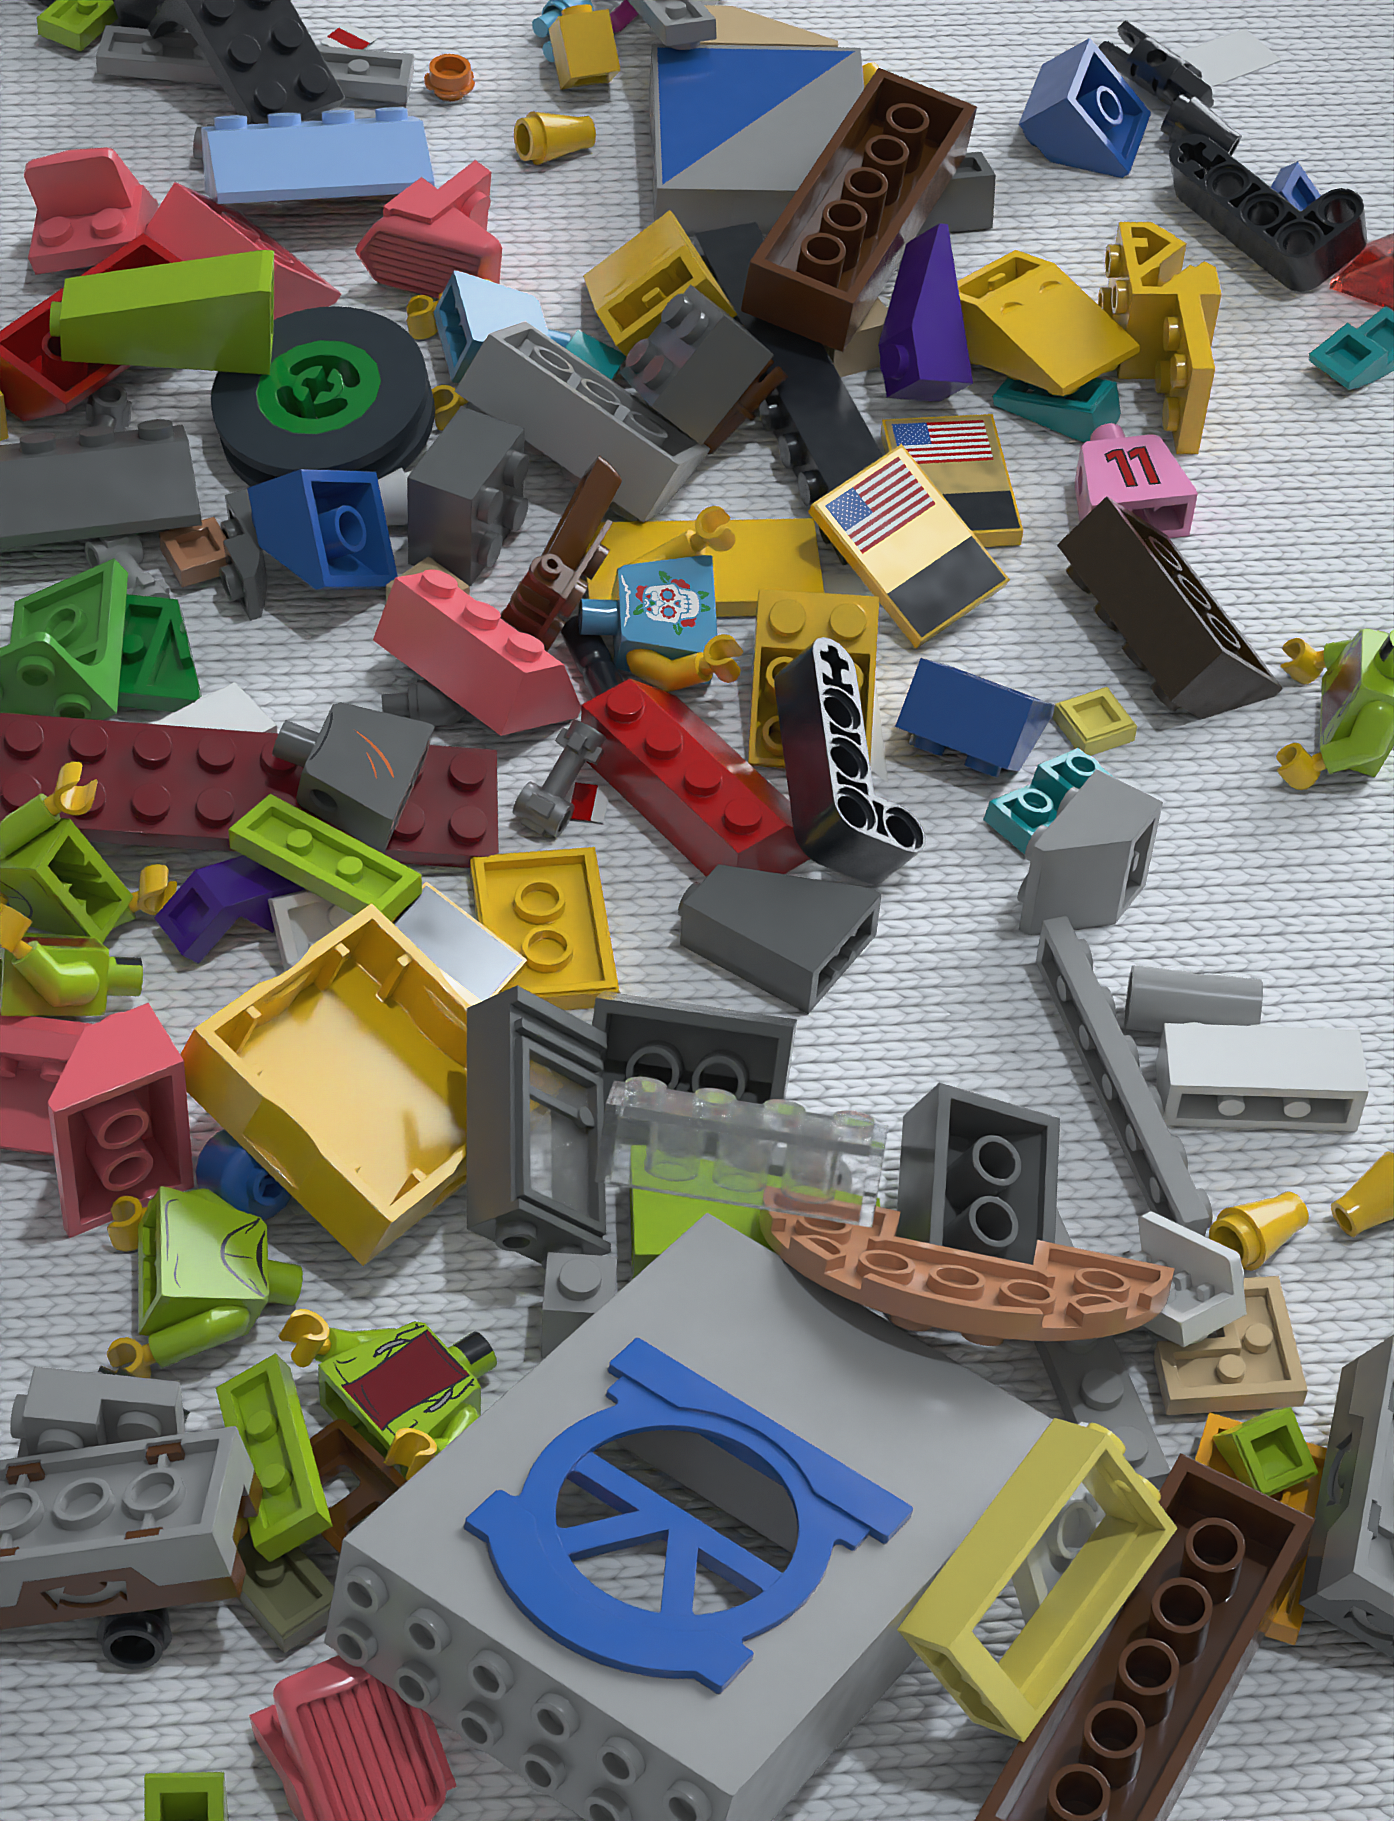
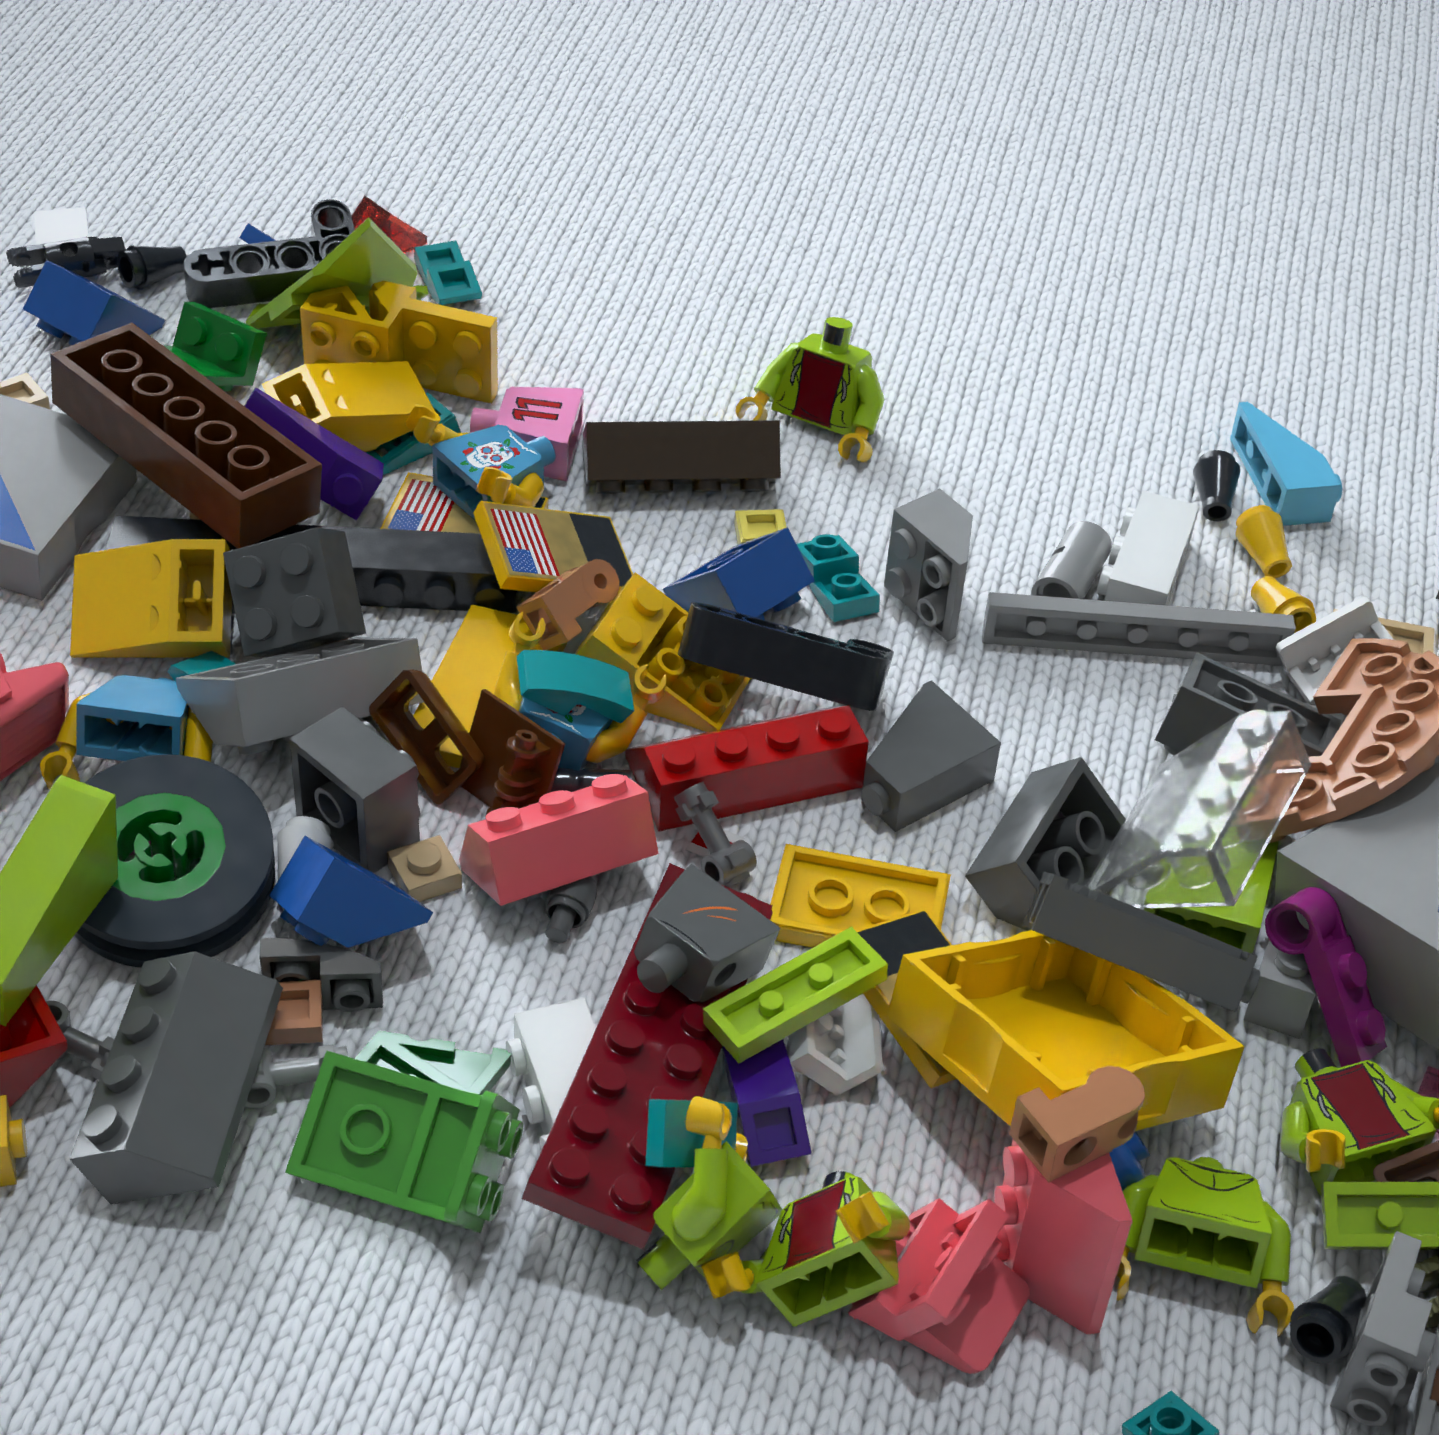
camera: 70 degrees left, 5 degrees down
(115, 827) = (667, 1136): none -> teal slope
(134, 1034) = (1079, 1124): none -> nougat leg
(598, 1270) = (1335, 970): none -> magenta plate
(673, 590) = (566, 679): none -> teal slope
(826, 565) = (567, 599): none -> nougat leg
(1004, 455) = (484, 463): none -> torso
(1048, 209) = (218, 346): none -> green bracket
(1218, 237) = (357, 261): none -> lime panel

